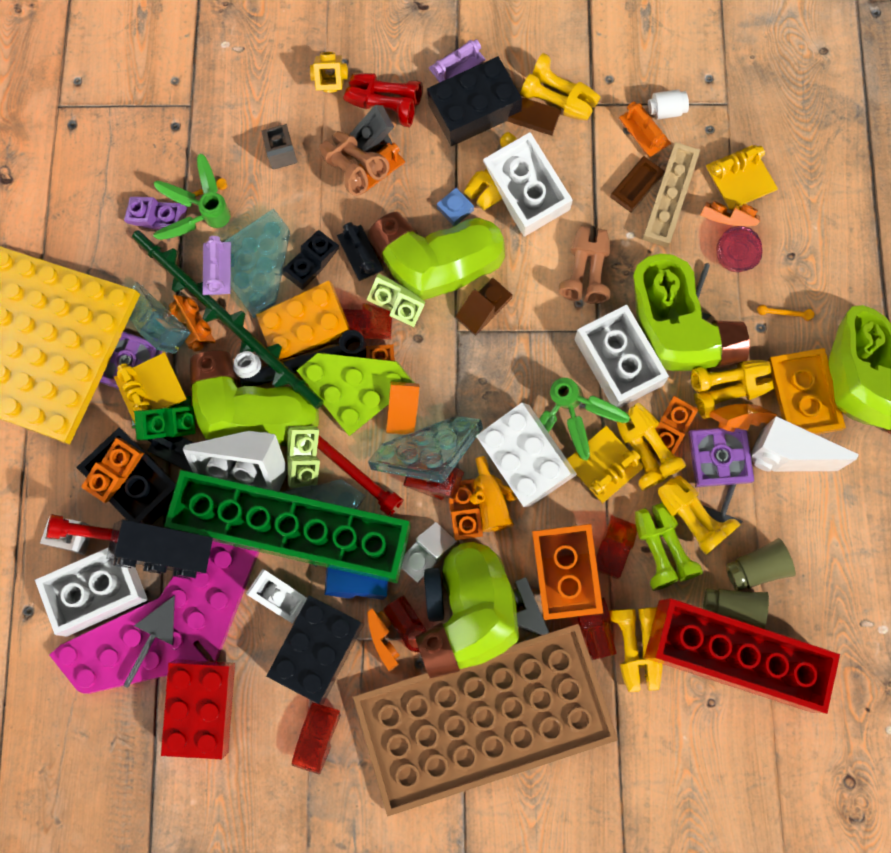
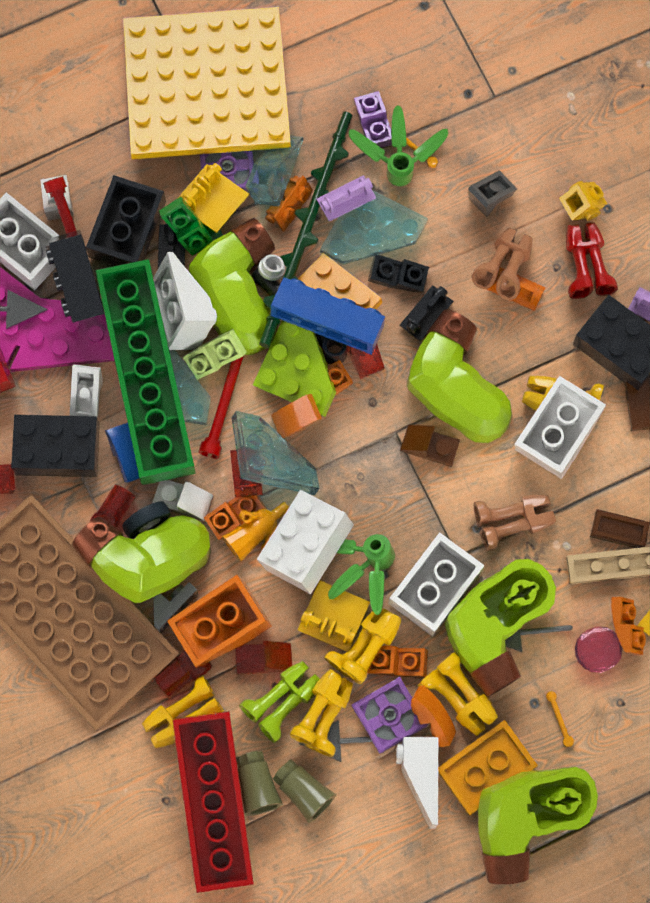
camera: 60 degrees right, 0 degrees up
(113, 471) = (124, 206): orange slope -> none
(323, 330) = (327, 315): none -> blue brick
(373, 130) = (544, 268): dark grey slope -> none
(379, 631) = (95, 490): orange slope -> none
(397, 299) = (397, 358): yellowish green slope -> none
(455, 207) = (513, 375): medium blue plate -> none

